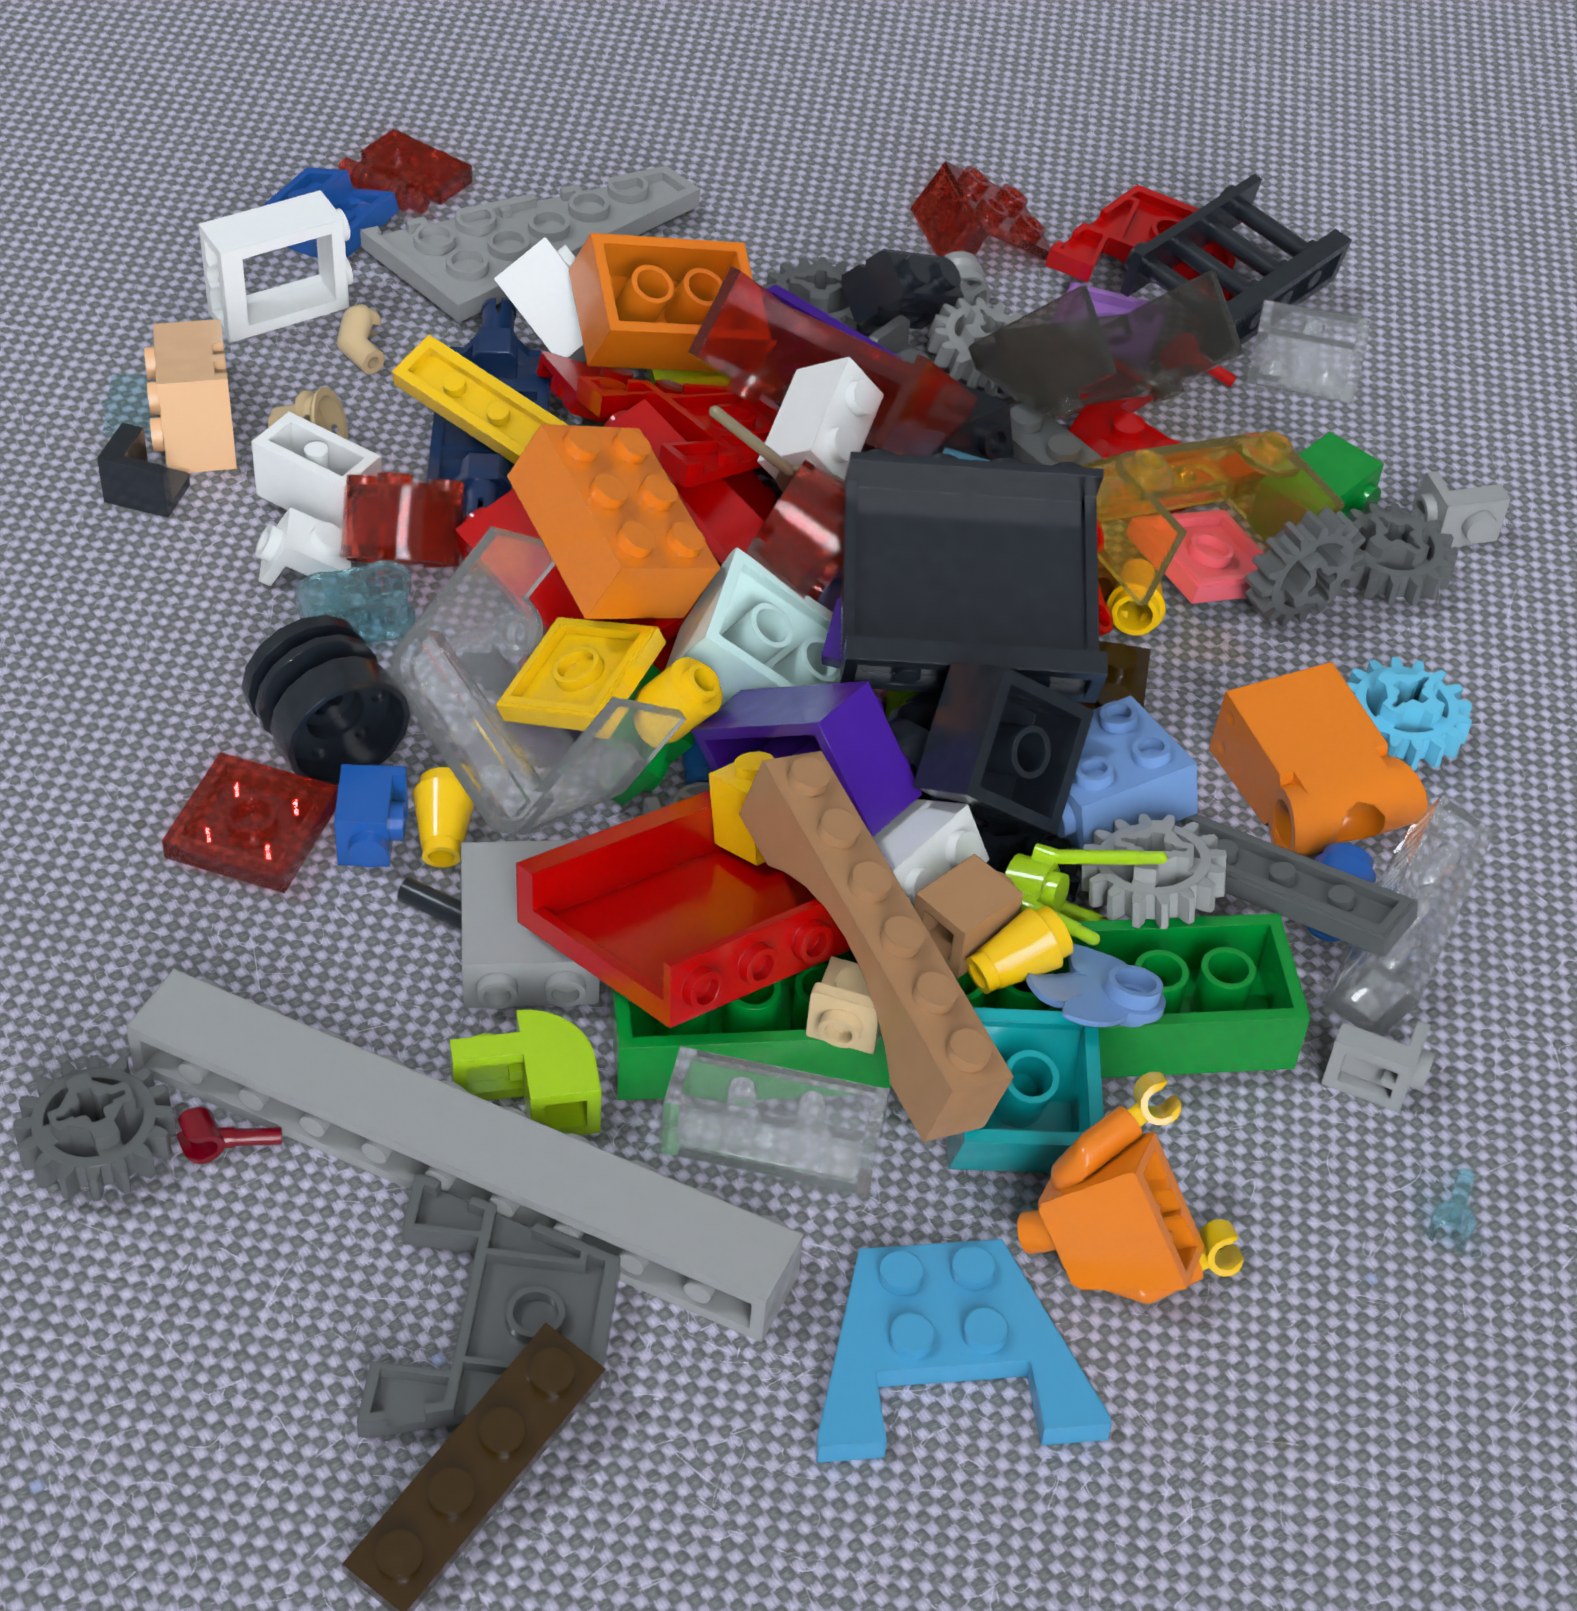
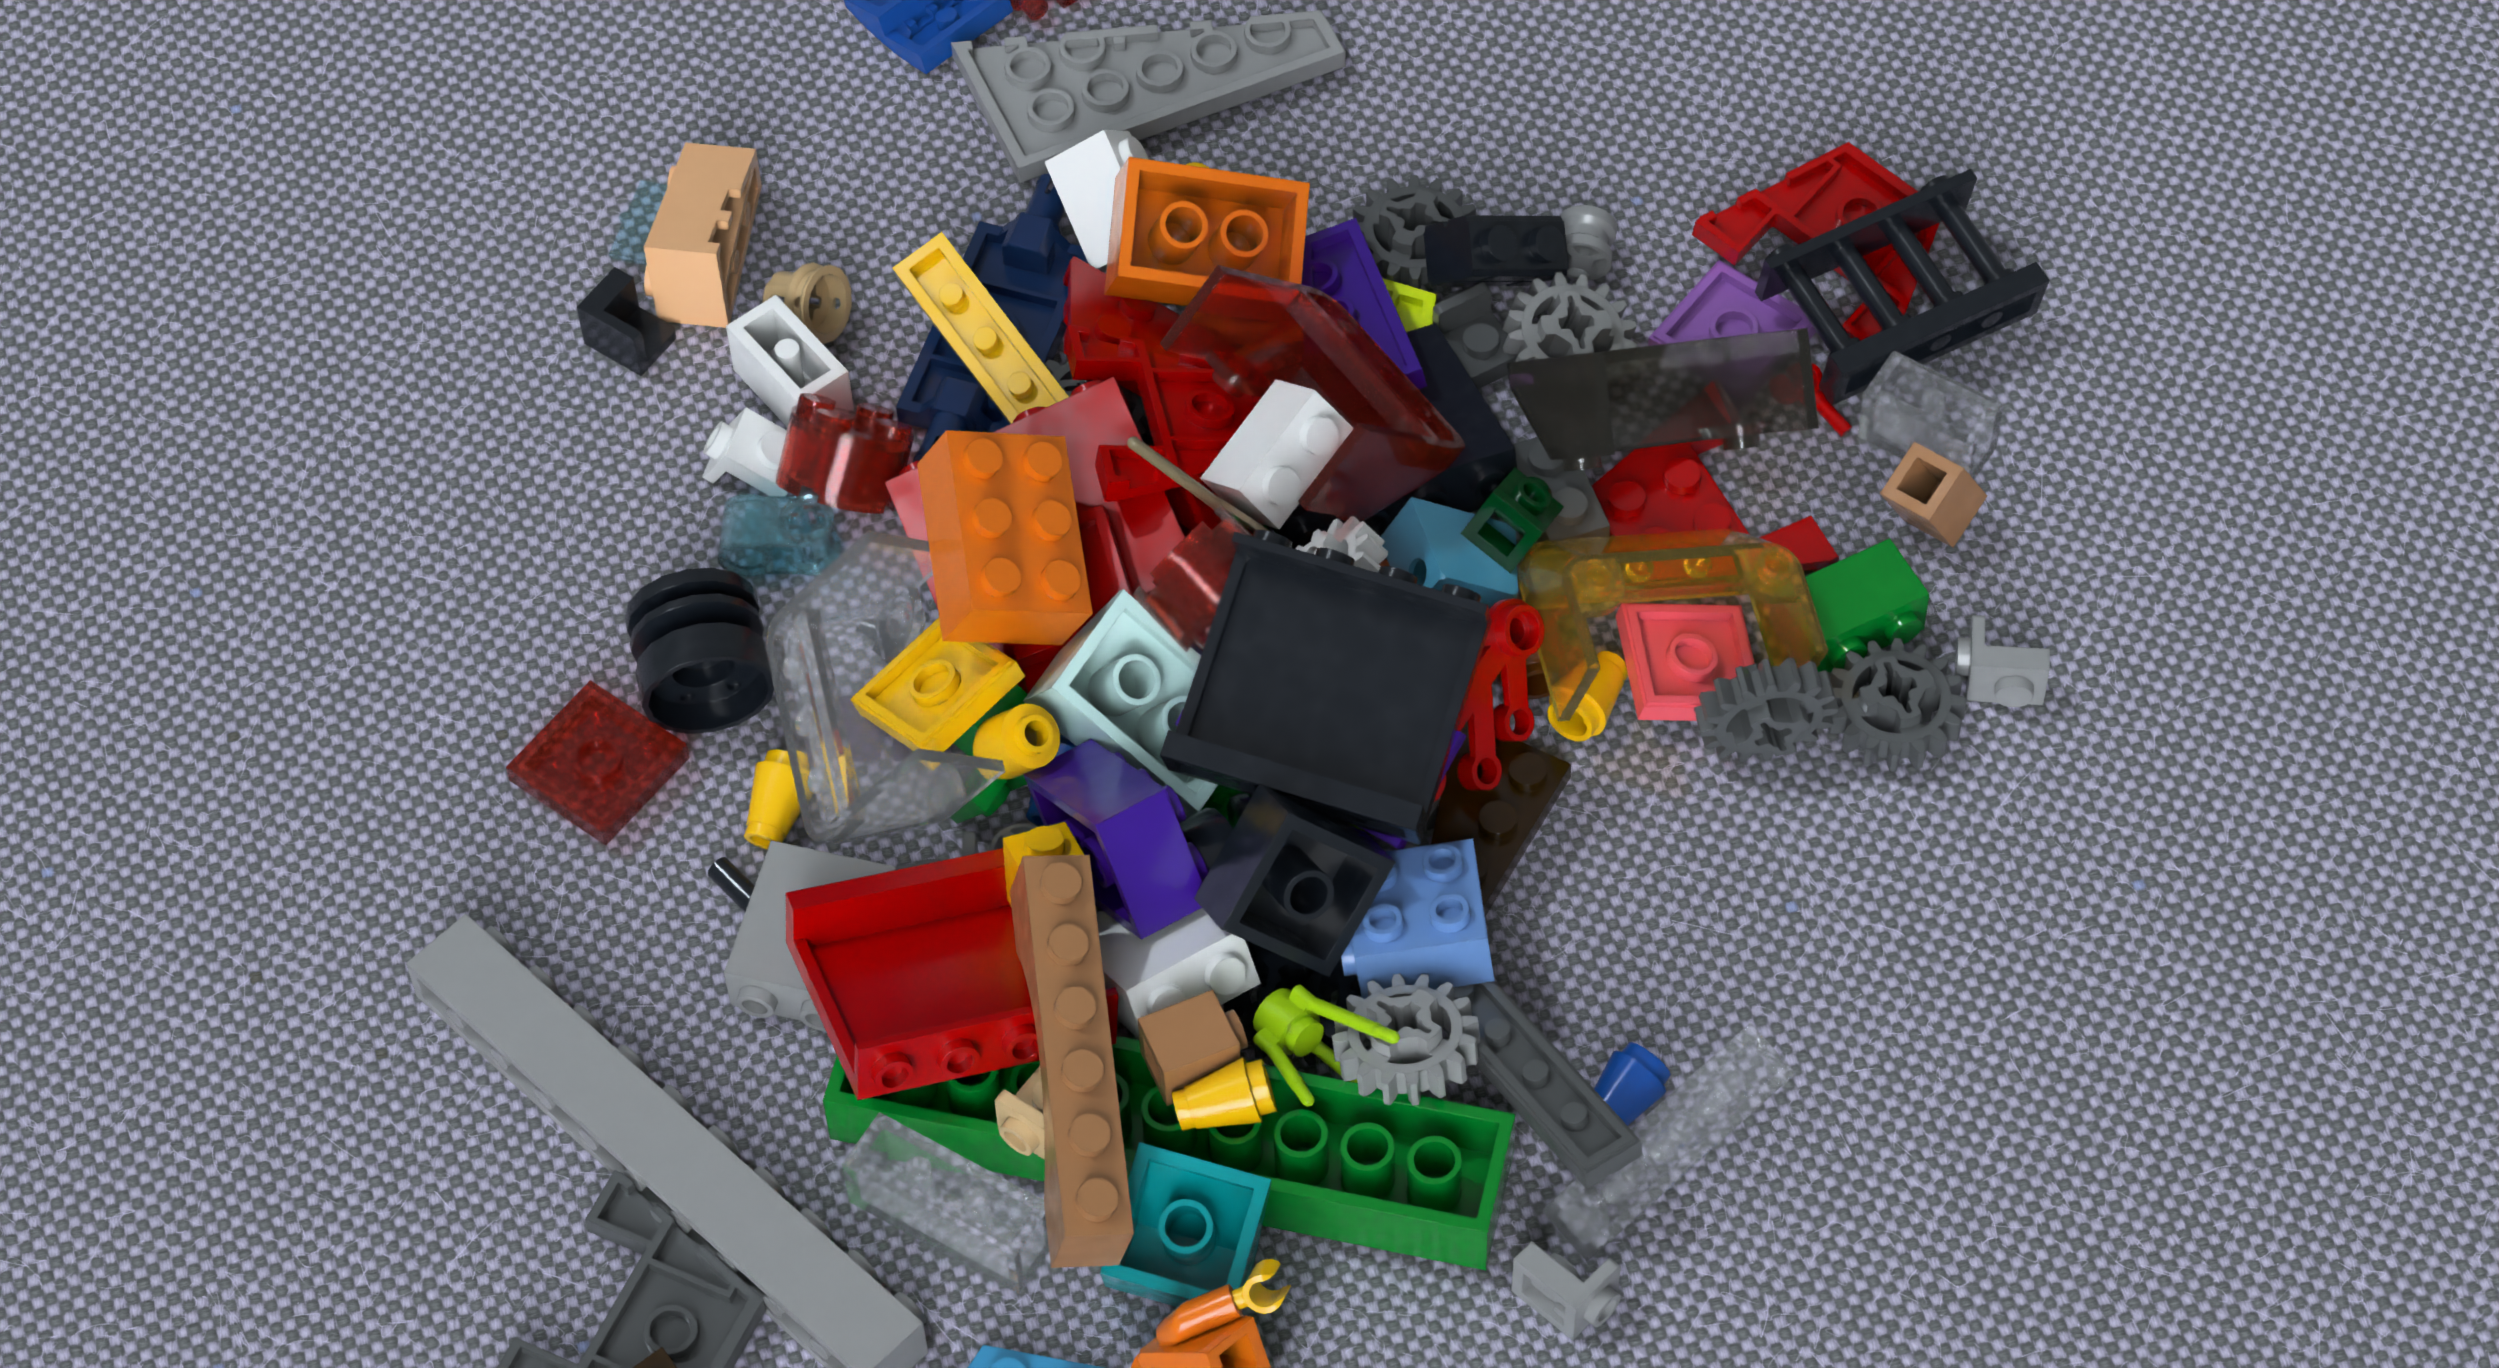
camera: 25 degrees right, 10 degrees up
(95, 1127) = (357, 1051): dark grey gear -> none
(204, 1141) = (452, 1087): dark red hand -> none
(266, 229) = (832, 56): white window -> none
(354, 335) = (898, 184): tan arm -> none
(370, 813) = (707, 781): blue brick -> none
(542, 1061) = (768, 1090): lime brick -> none
(965, 207) = (1653, 142): clear red bracket -> none
(1036, 442) = (1522, 504): none -> dark green brick
(1101, 991) = (1284, 1160): medium blue plate -> none
(1313, 761) = (1665, 944): orange piece -> none
(1342, 398) = (1933, 494): none -> medium nougat brick
(1413, 710) = (1800, 905): medium azure gear -> none

